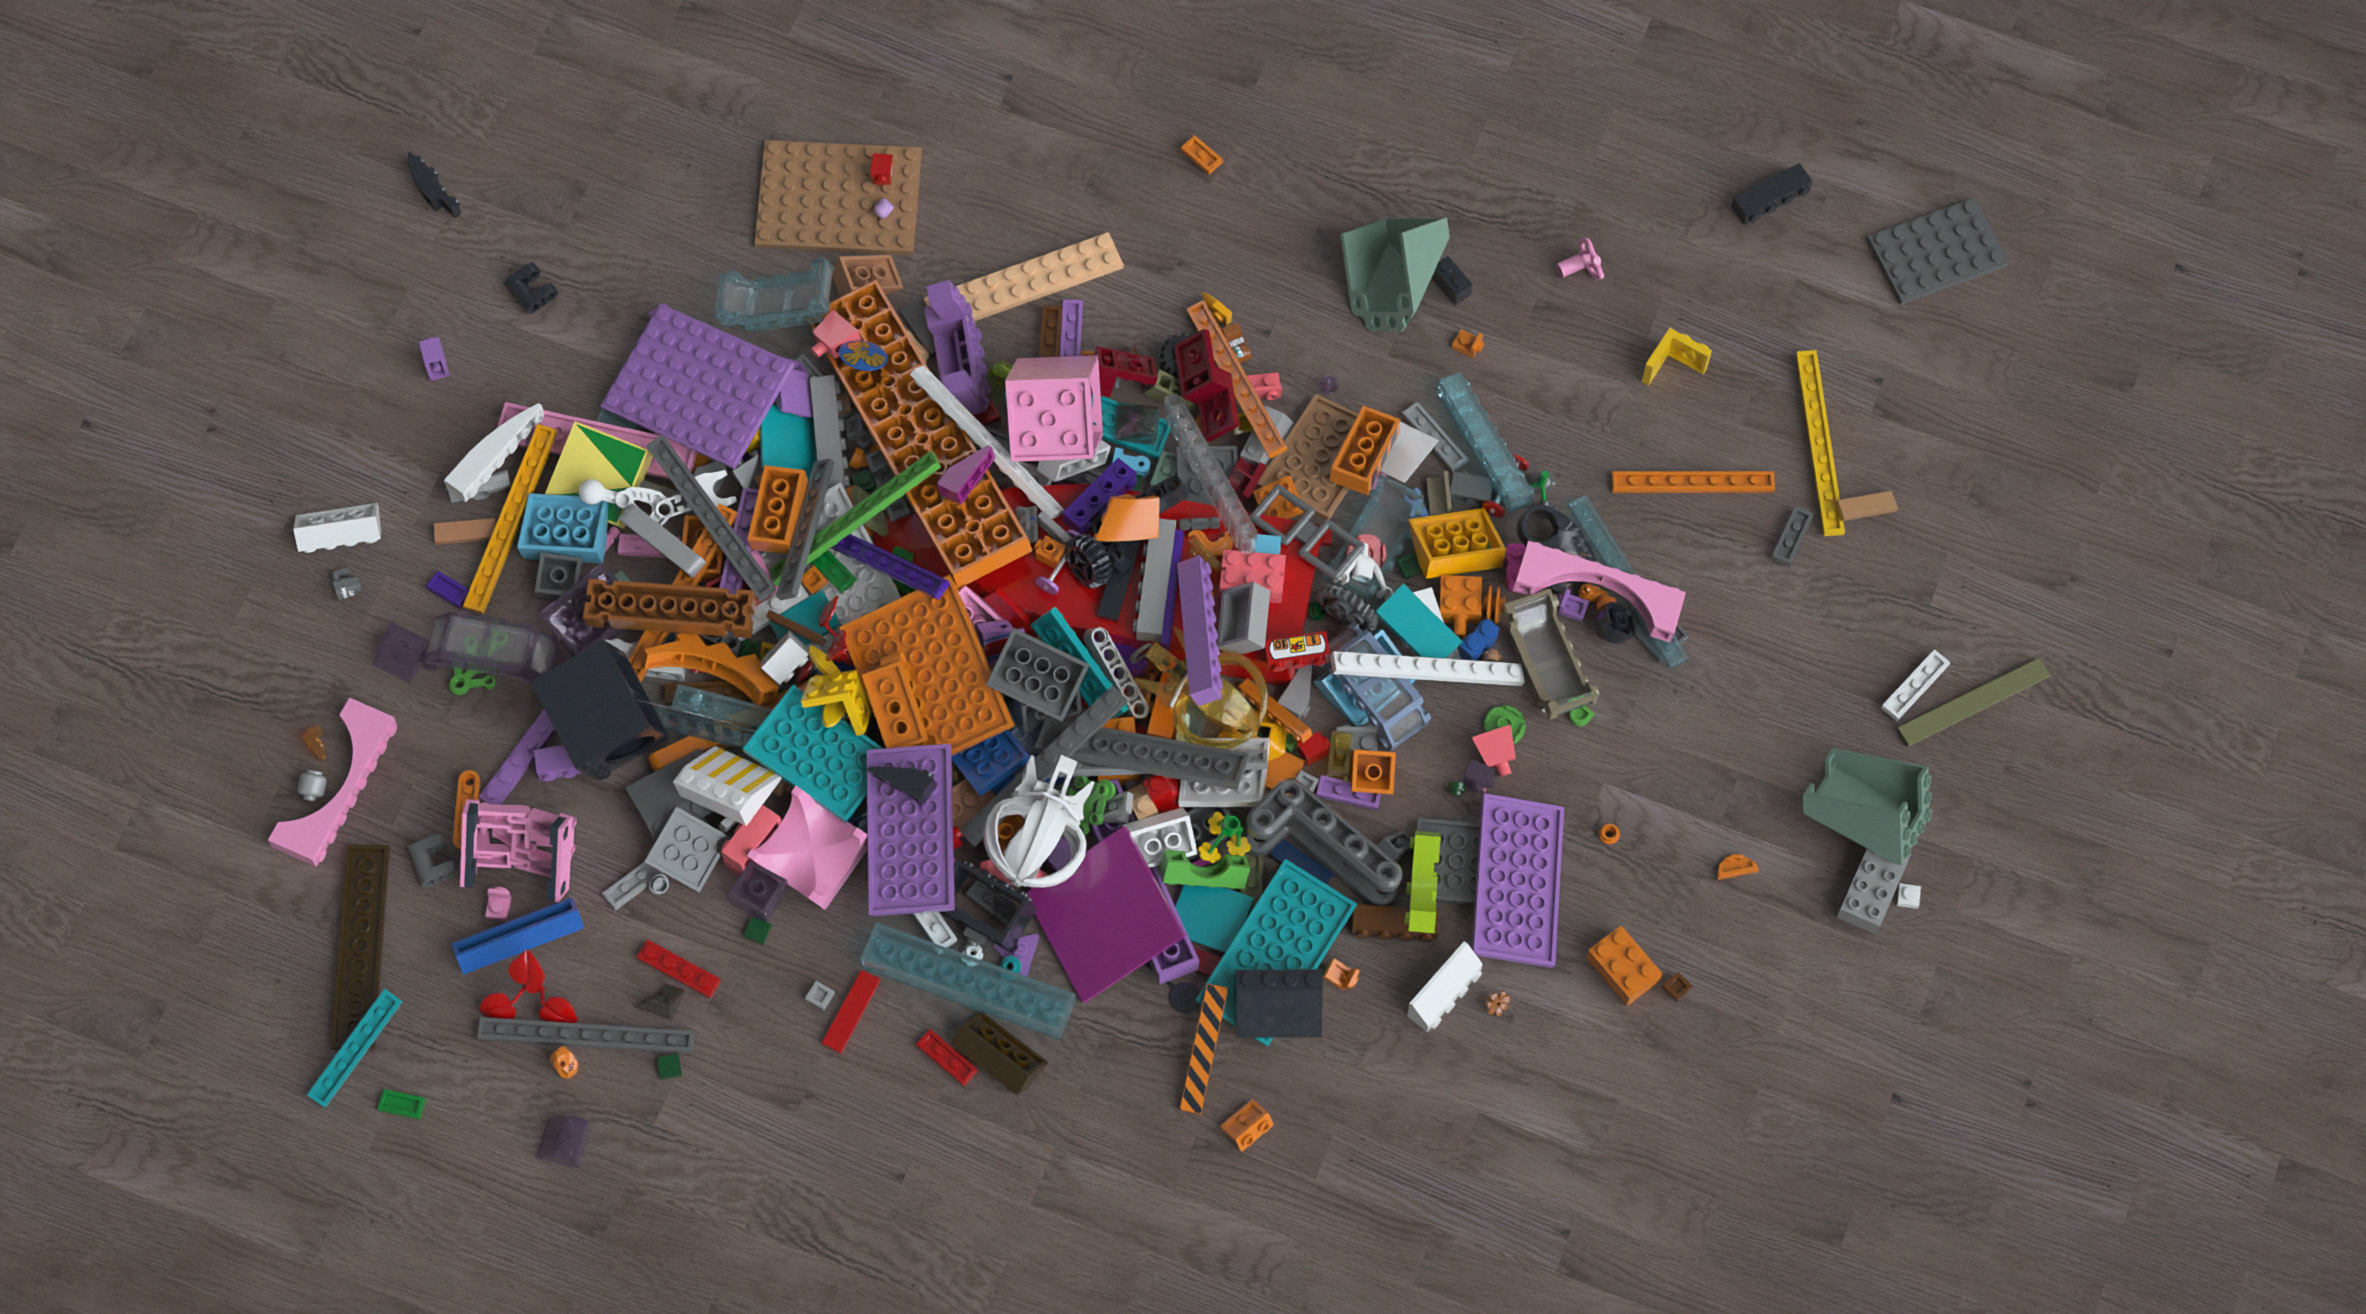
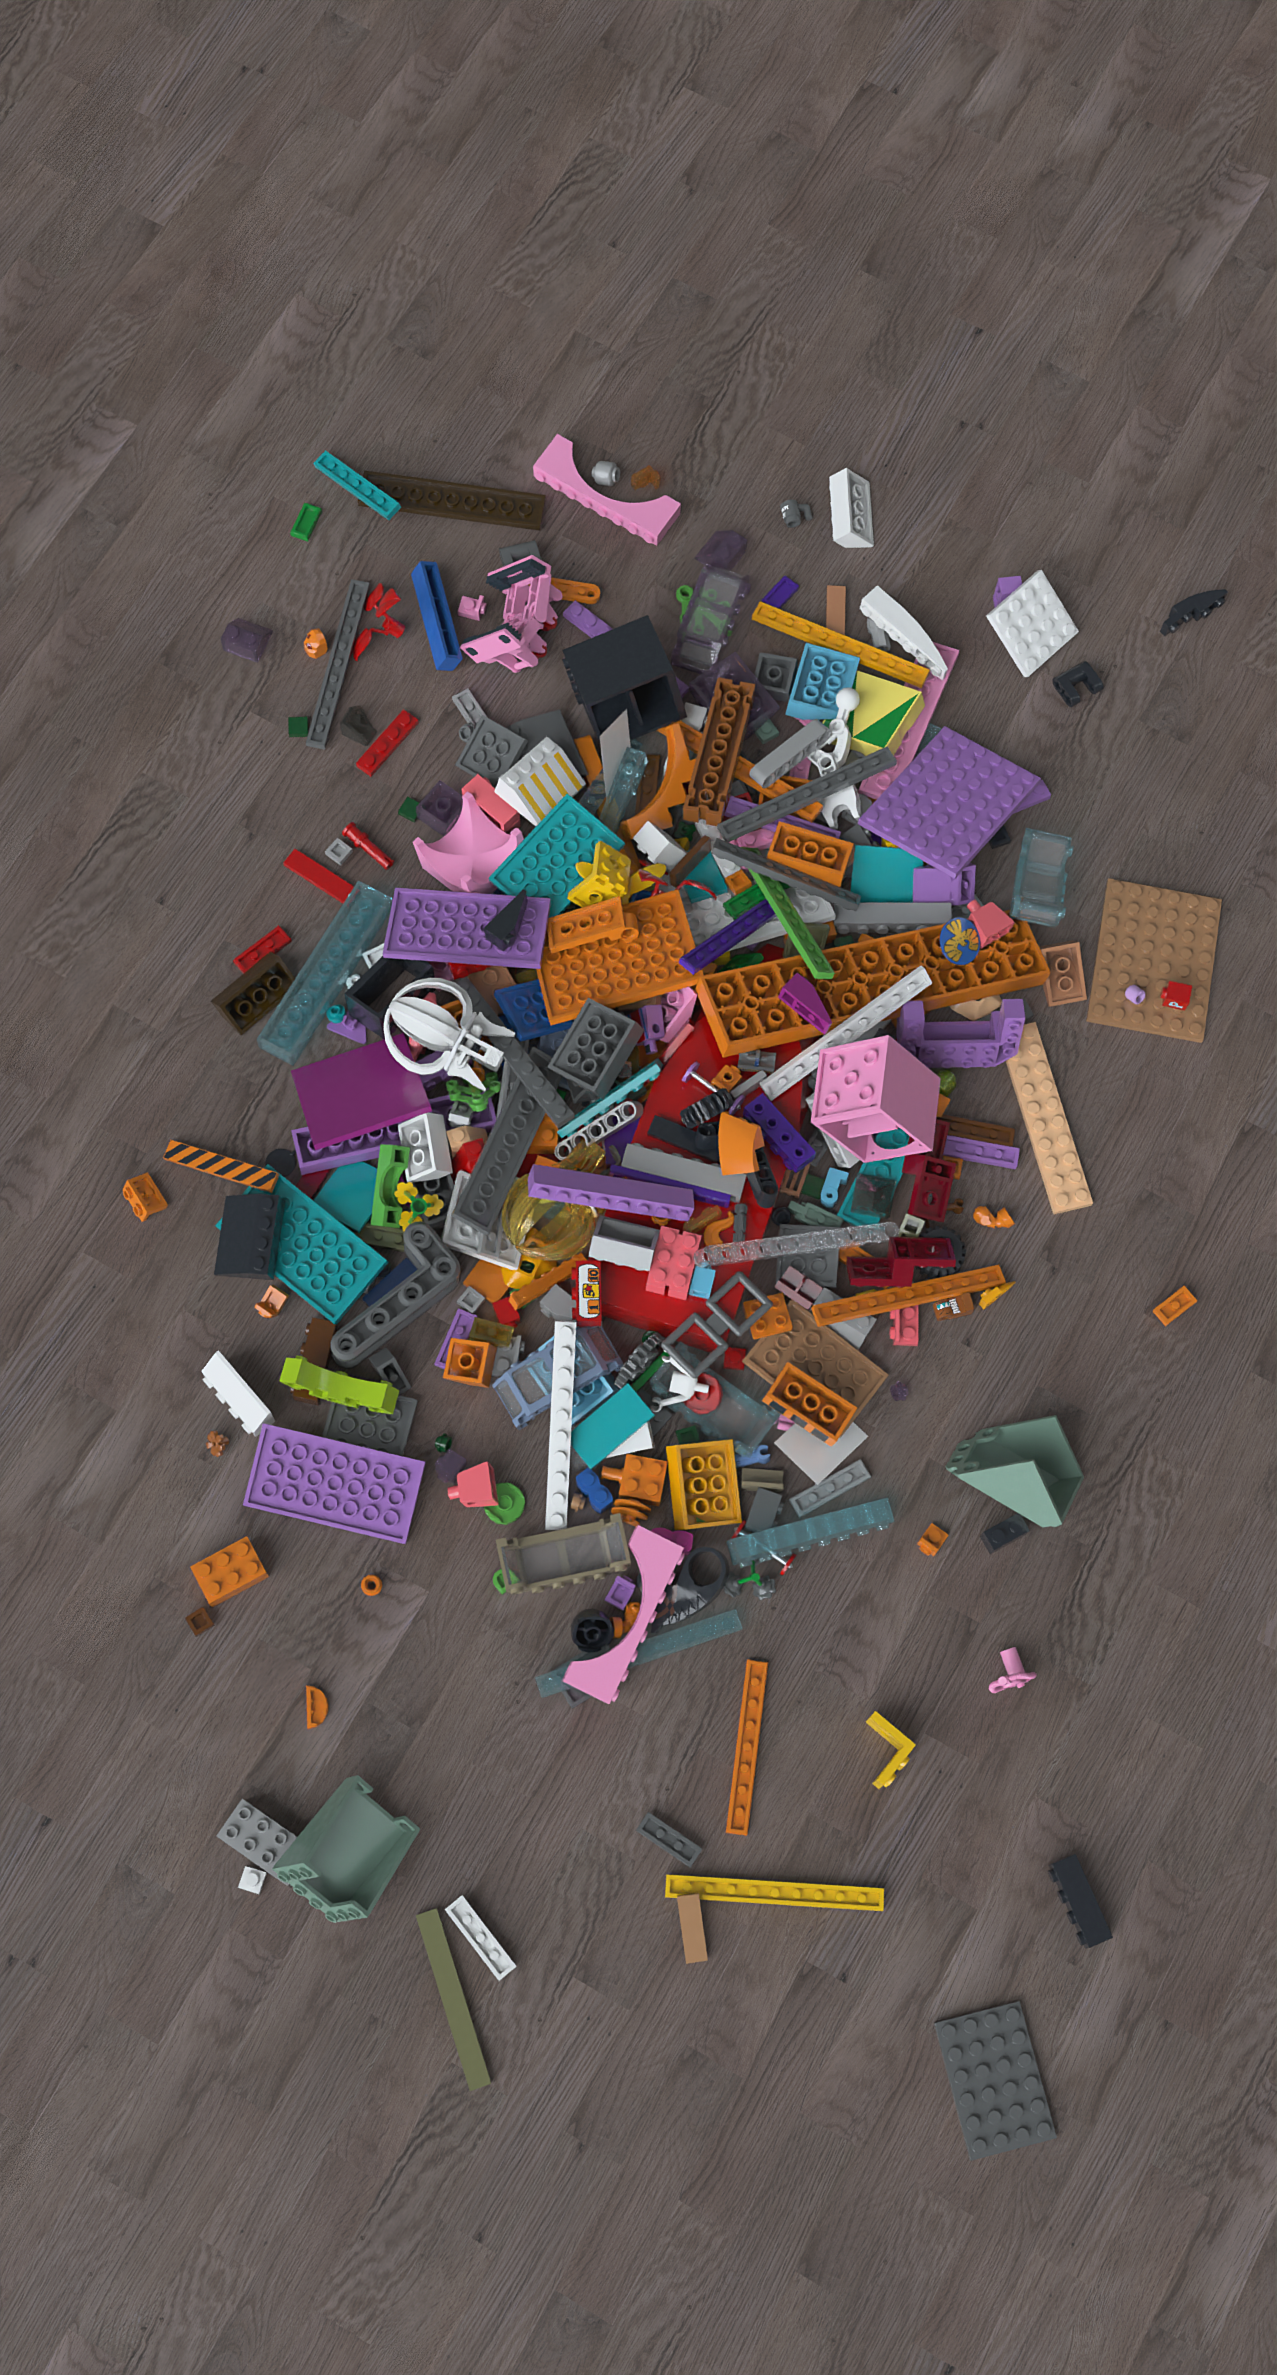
camera: 95 degrees right, 5 degrees up
(470, 330) = (1032, 623): none -> white plate
(804, 973) = (361, 840): none -> red pin
(1139, 324) = (984, 1217): none -> orange arm

